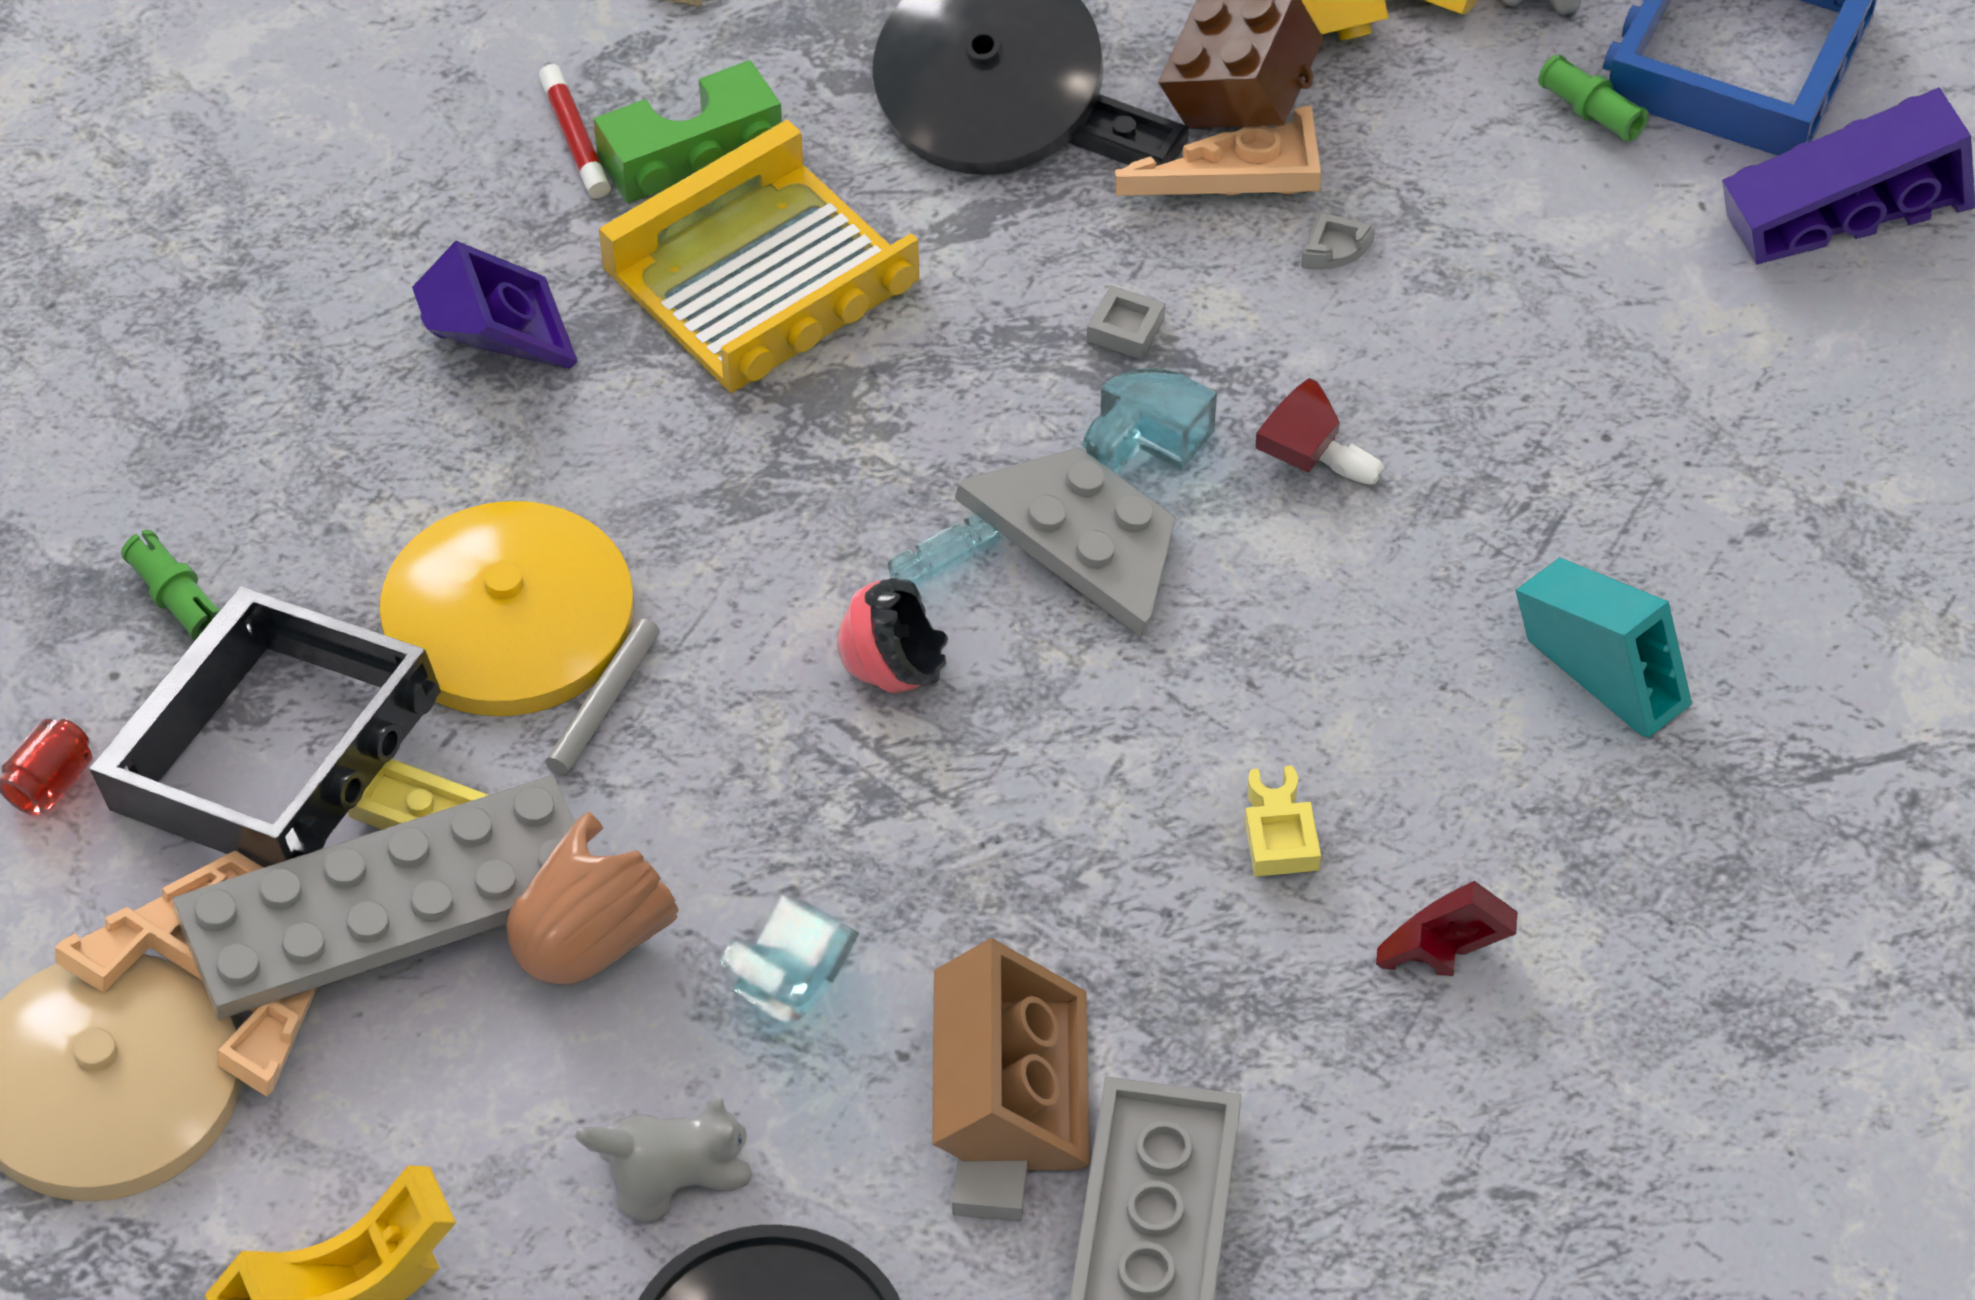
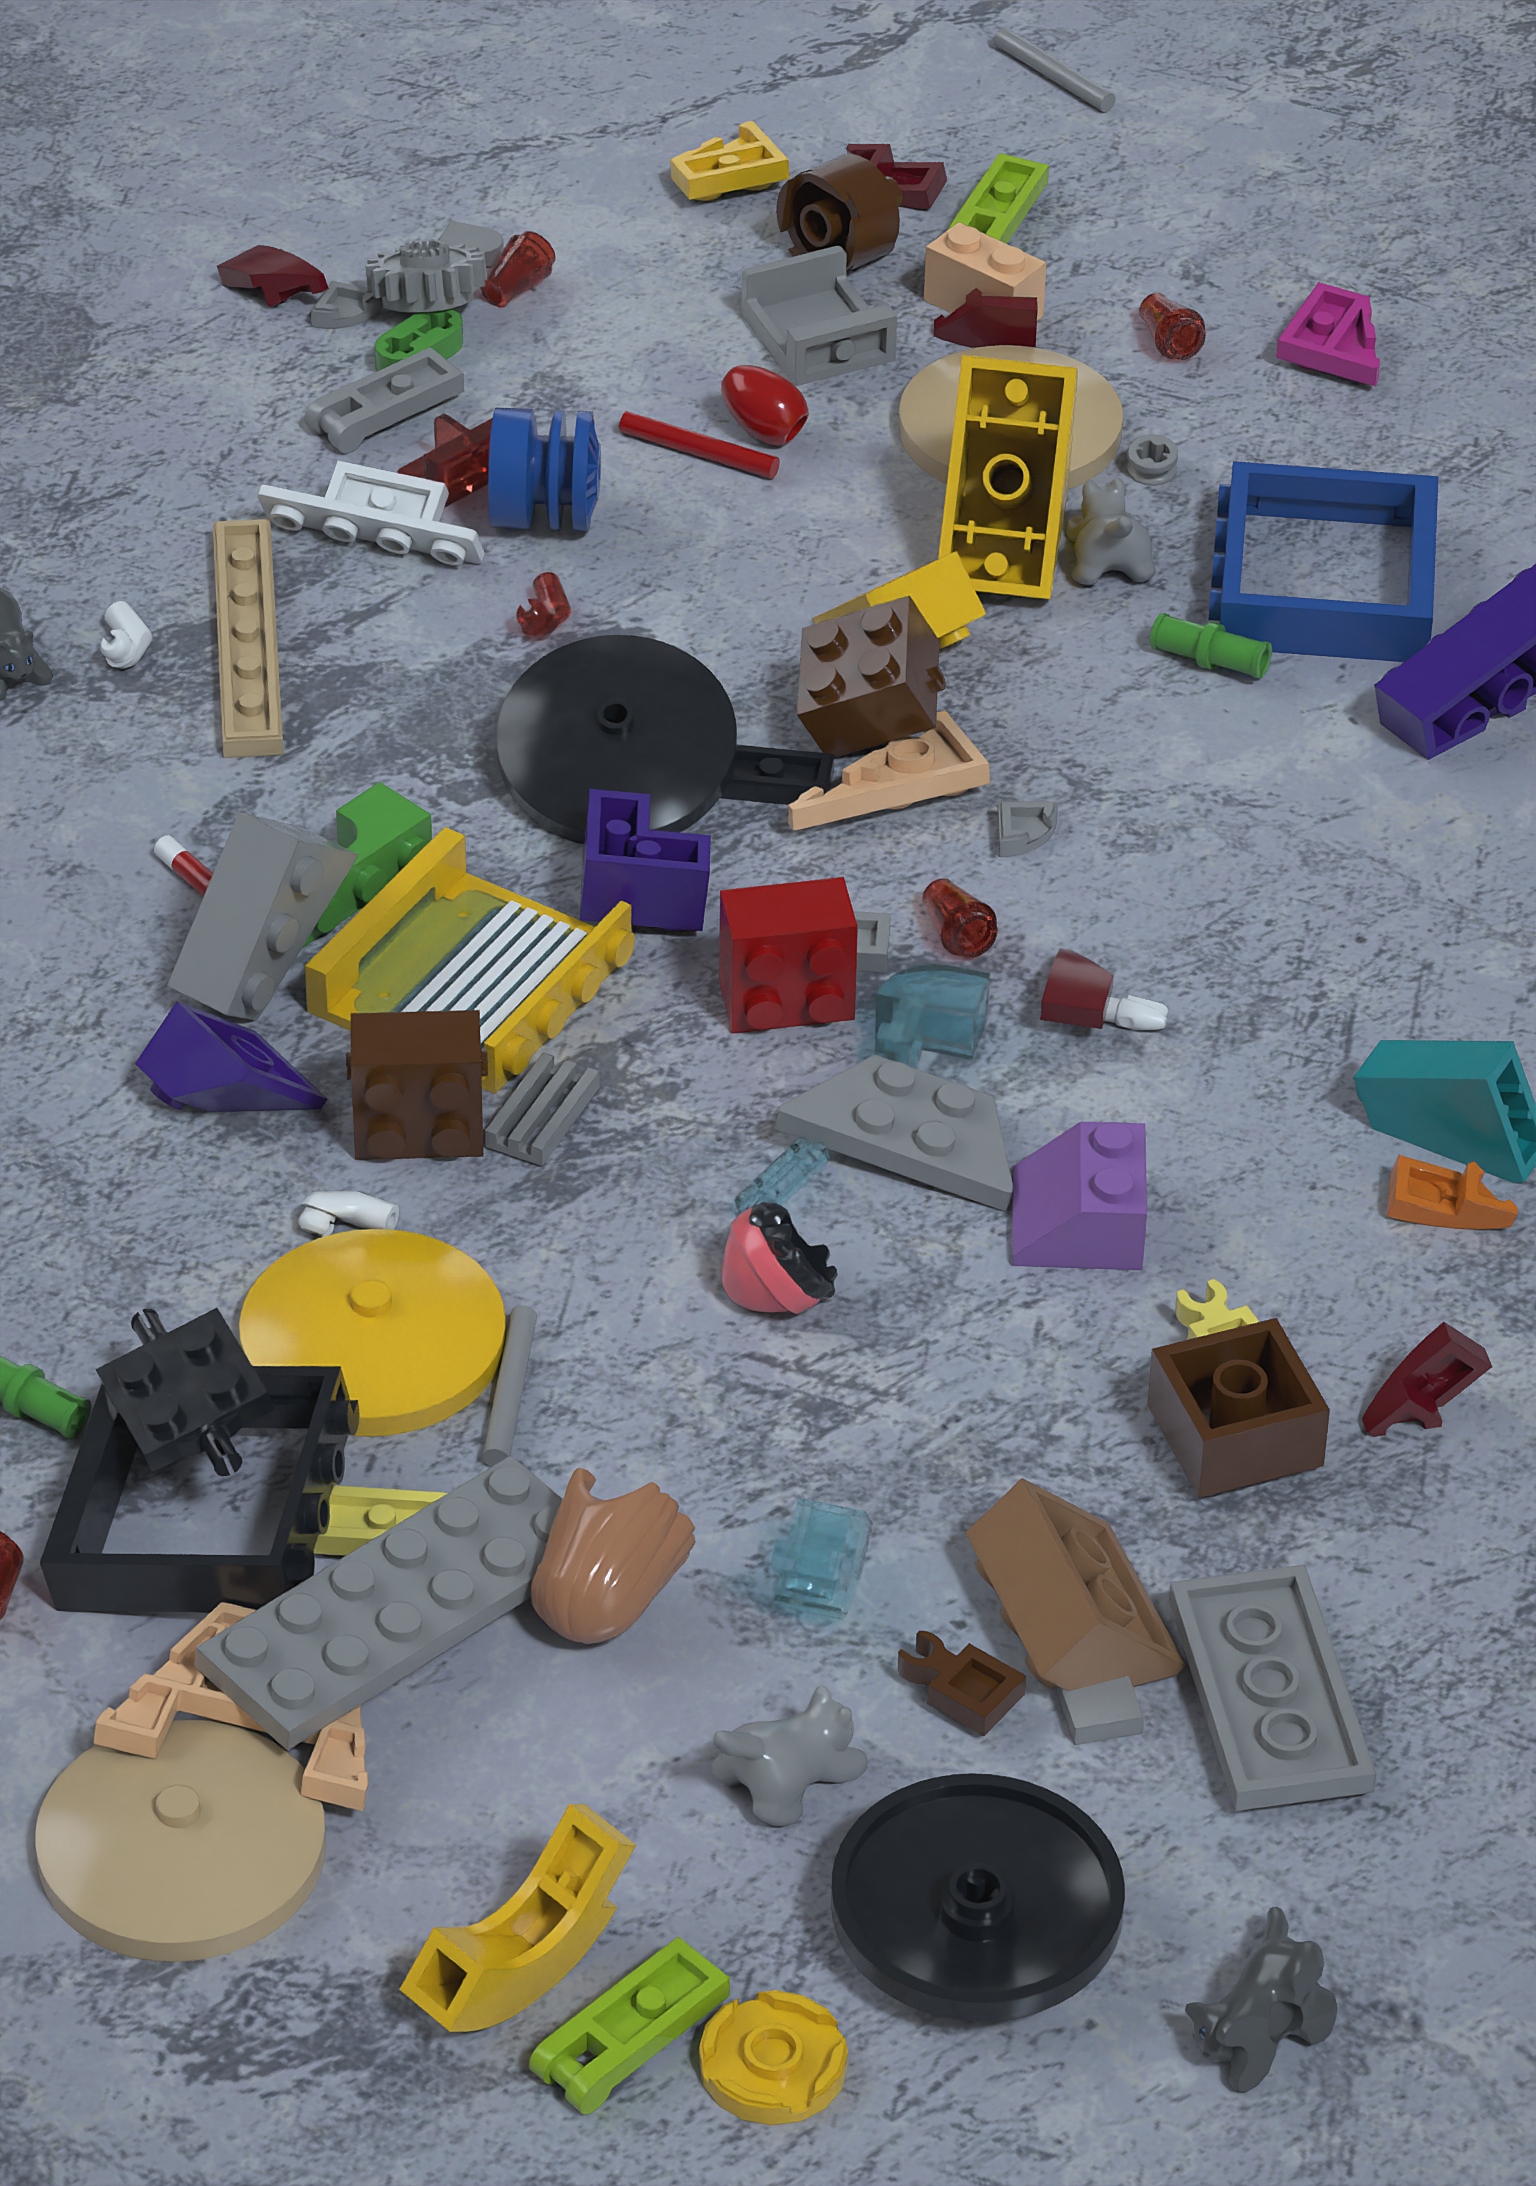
camera: 20 degrees left, 10 degrees down
(281, 635) = (185, 1390): none -> black plate
(539, 474) = (348, 1206): none -> white arm
(575, 166) = (257, 913): none -> light grey wedge
(641, 374) = (417, 1084): none -> reddish brown brick
(753, 416) = (553, 1081): none -> light grey tile
(870, 1129) = (964, 1686): none -> reddish brown plate
(943, 201) = (652, 870): none -> dark purple brick
(1037, 326) = (787, 955): none -> red brick
(1210, 649) = (1082, 1199): none -> medium lavender slope
(1227, 325) = (960, 919): none -> clear red cone
(1248, 910) = (1238, 1407): none -> reddish brown brick
(1561, 734) = (1445, 1197): none -> orange slope

